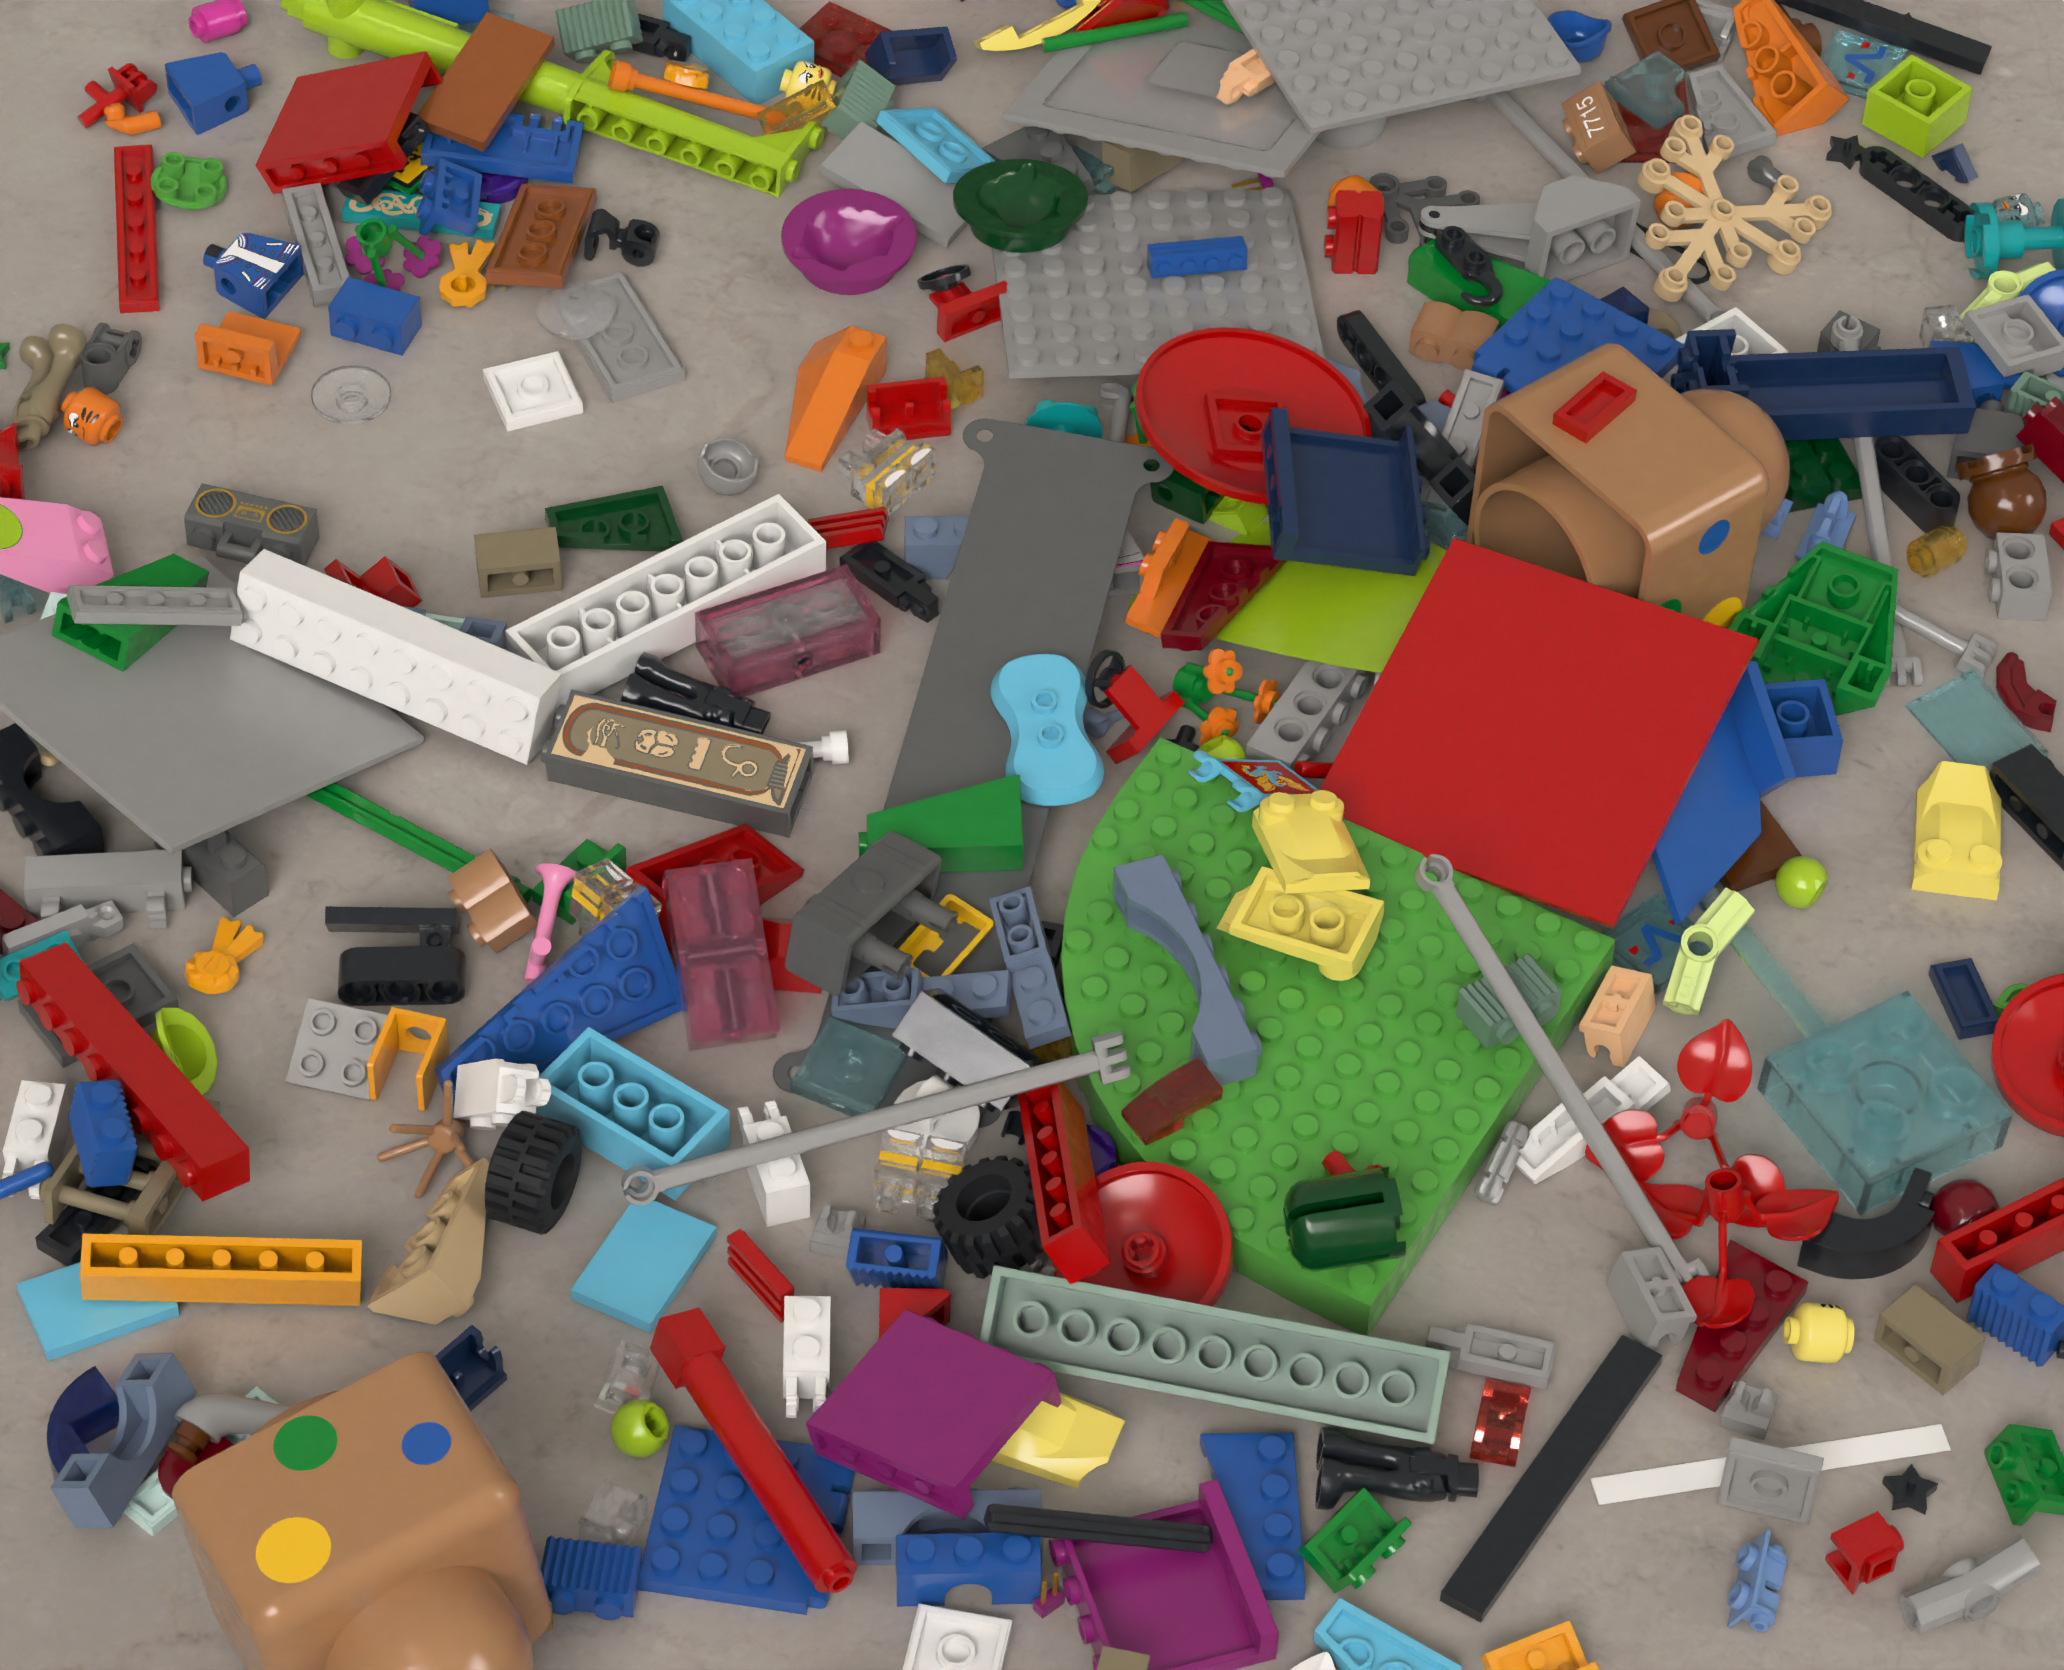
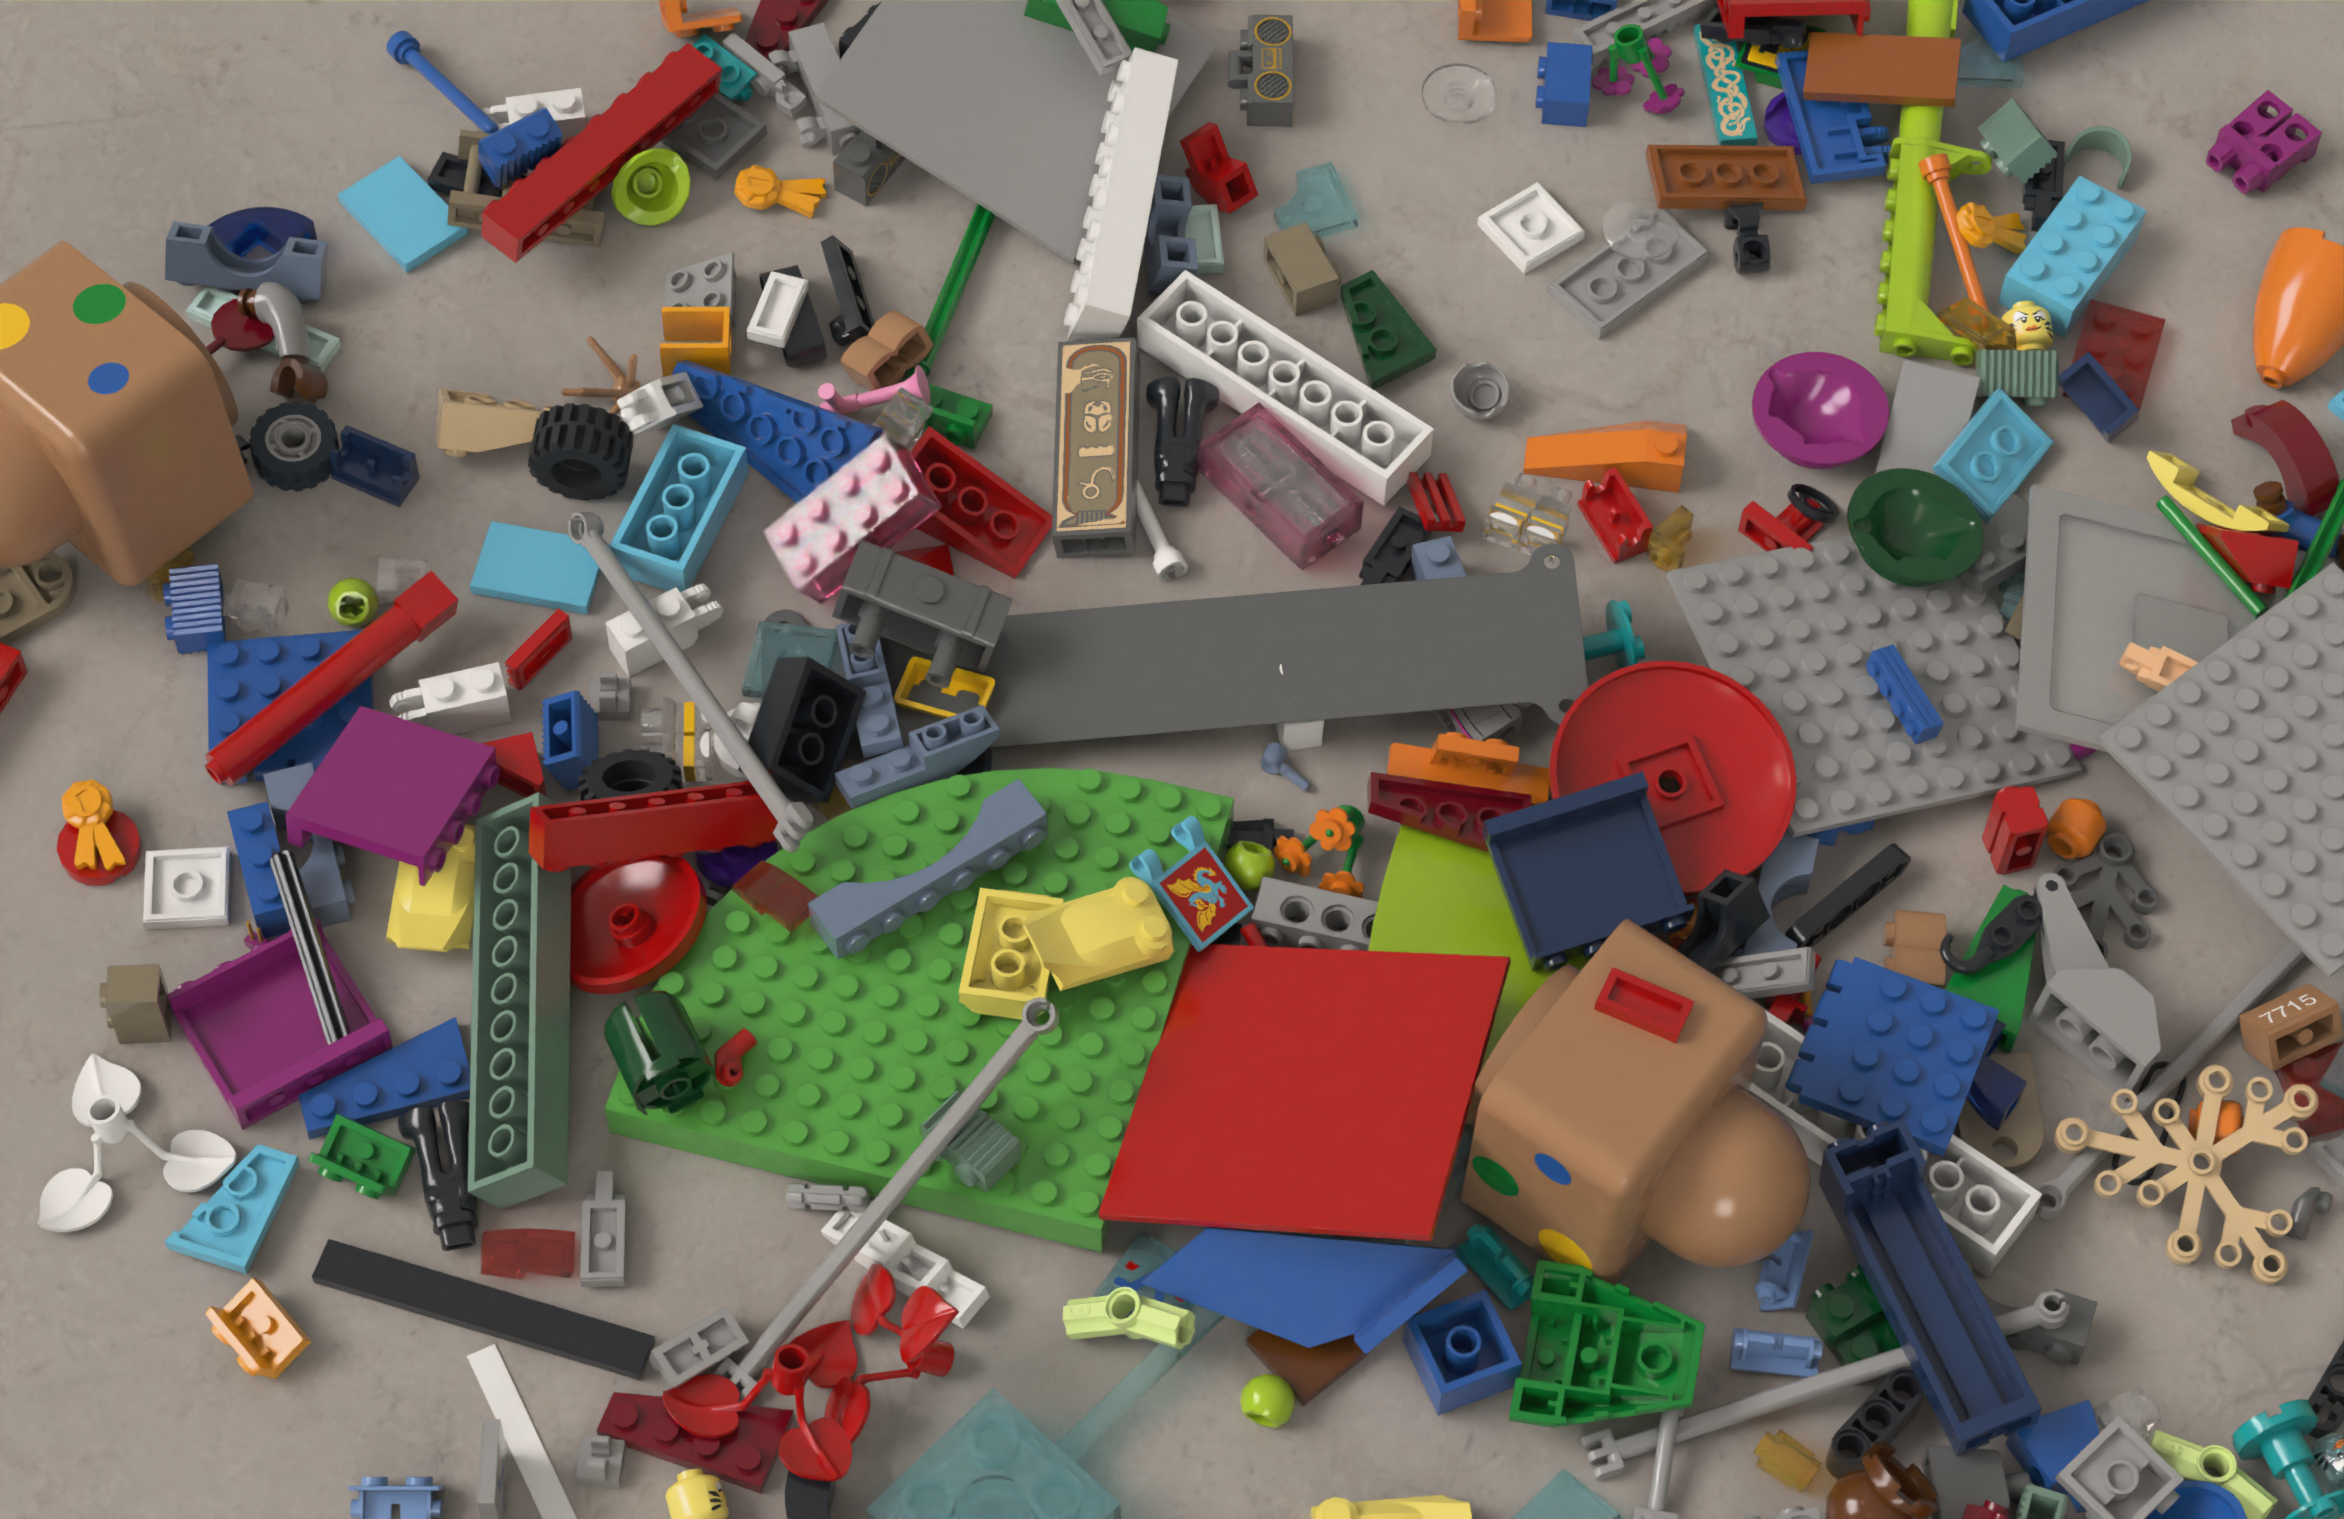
camera: 75 degrees right, 10 degrees up
(221, 1269) = (429, 275): light orange brick -> none
(406, 972) = (777, 309): none -> white tile
(437, 537) = (1318, 202): none -> clear light blue tile
(449, 198) = (1733, 93): blue bracket -> none
(465, 284) = (1635, 136): light orange piece -> none
(966, 827) = (1064, 665): green slope -> none
(1044, 711) = (1185, 721): medium azure plate -> none
(1133, 699) = (1281, 768): red piece -> none
(1619, 1013) = (1038, 1264): light nougat hinge -> none

